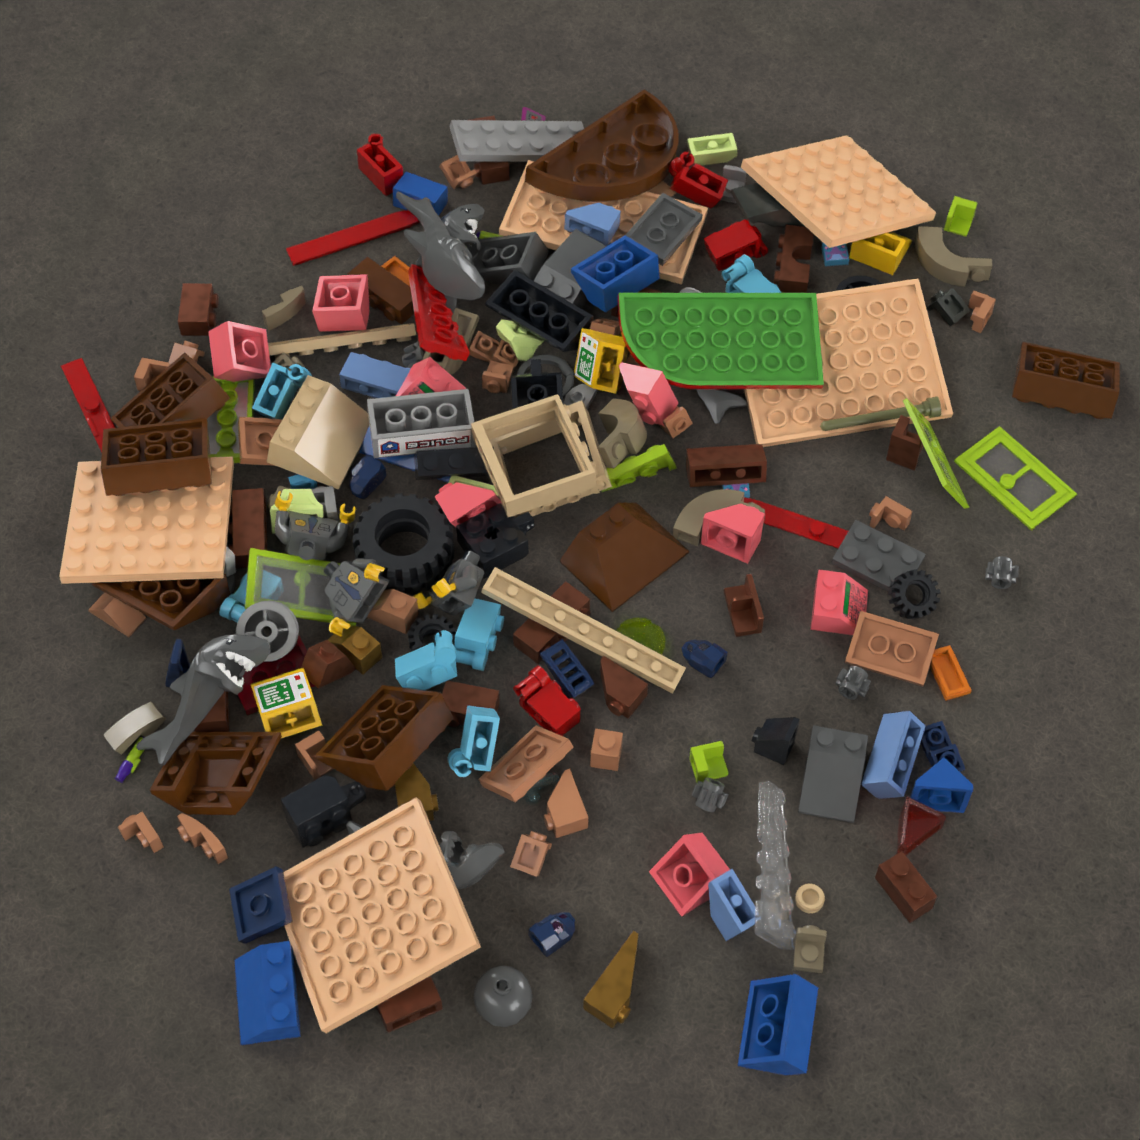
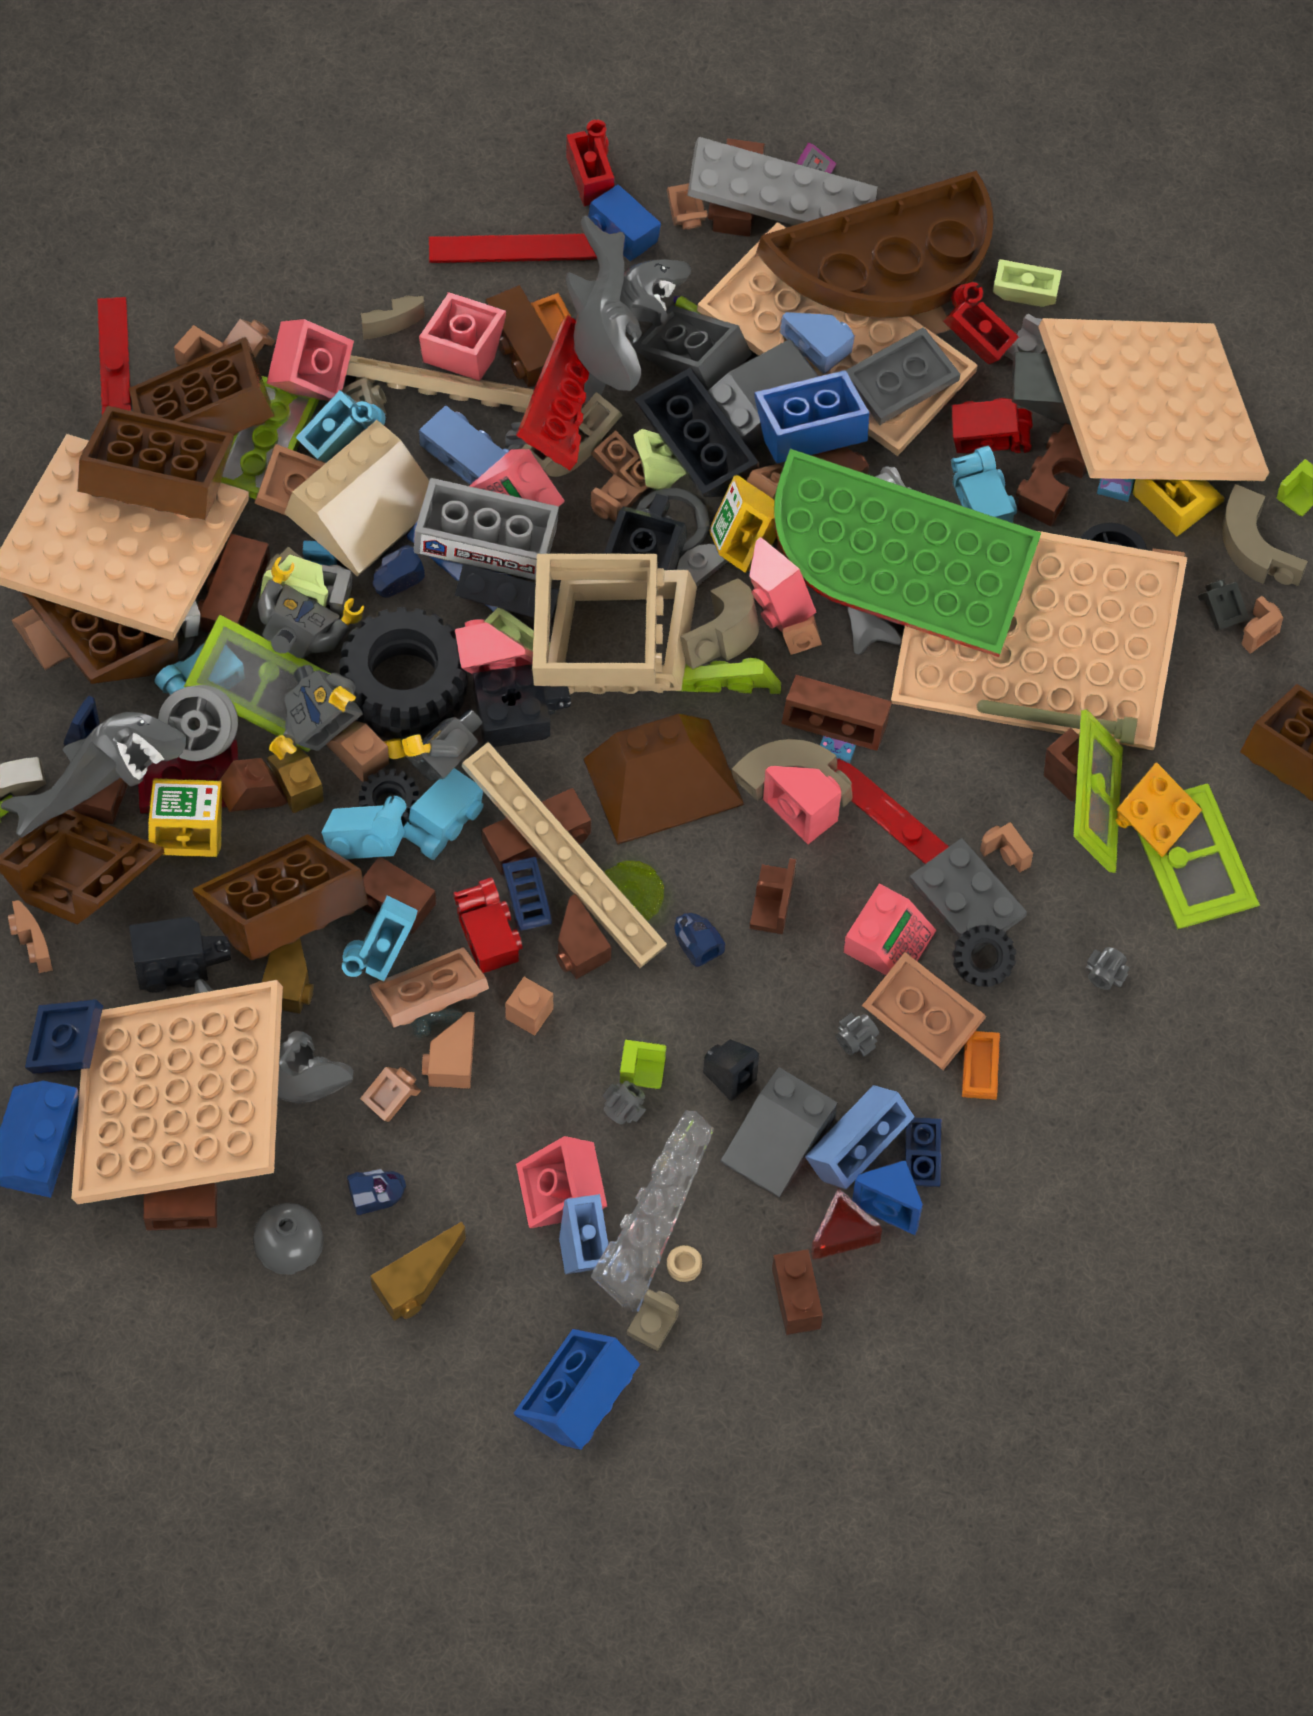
camera: 20 degrees right, 5 degrees up
(197, 309) = (286, 282): copper brick -> none
(306, 752) = (189, 878): nougat panel -> none
(978, 453) = (1158, 810): none -> light orange hinge

